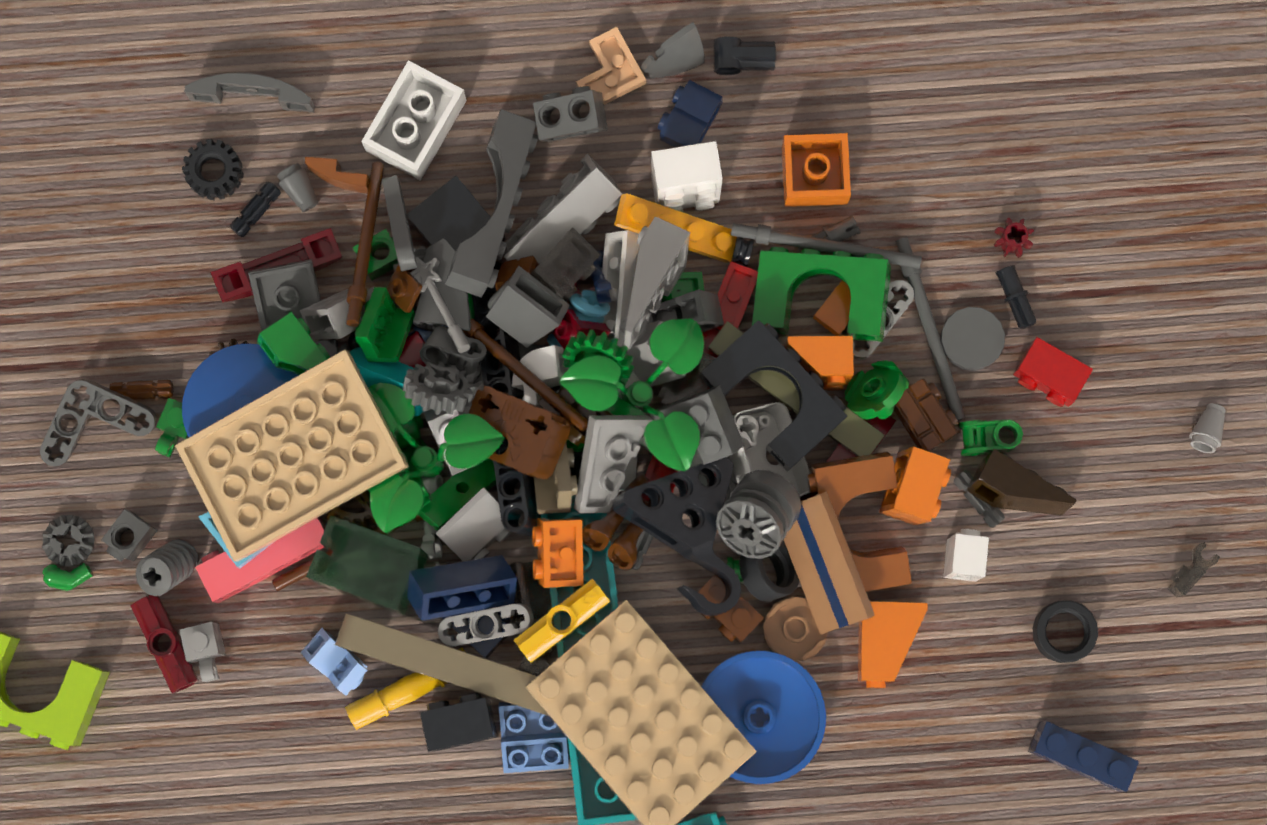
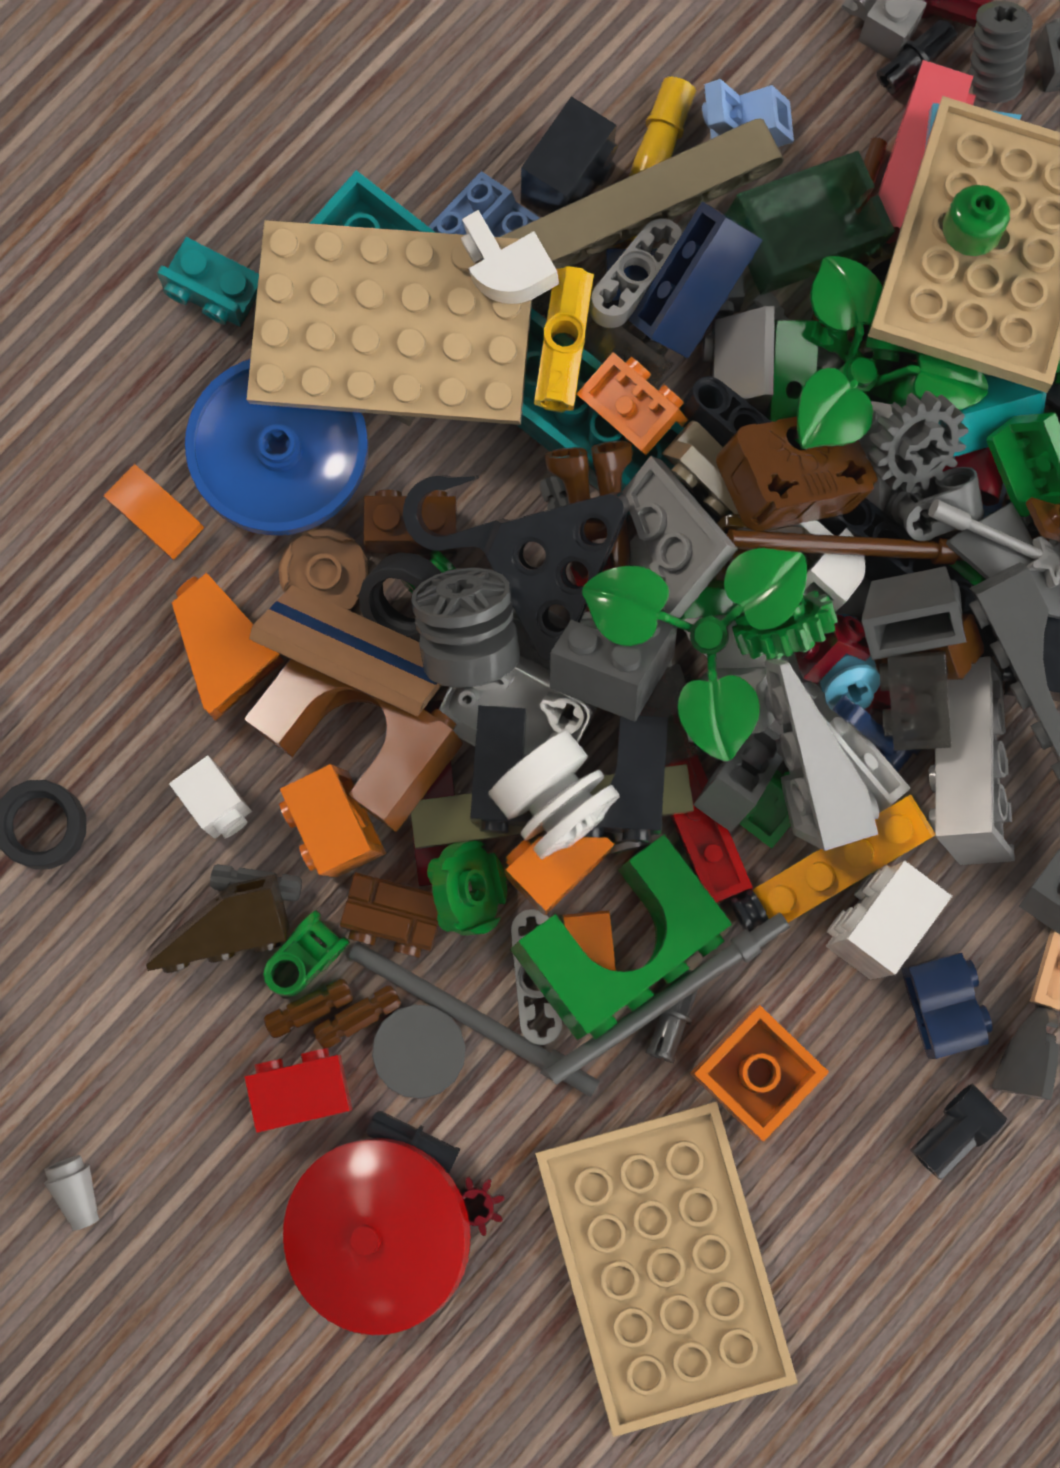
camera: 130 degrees right, 0 degrees up
(206, 612) = (908, 62): none -> black axle
(307, 470) = (976, 220): none -> green head
(563, 675) = (508, 274): none -> white brick
(801, 376) = (553, 794): none -> white wheel
(856, 746) = (154, 511): none -> orange slope
(947, 126) = (665, 1268): none -> tan plate
(988, 383) = (357, 1017): none -> reddish brown axle
(1009, 410) = (308, 1008): none -> reddish brown axle
(1076, 267) = (376, 1236): none -> red dish

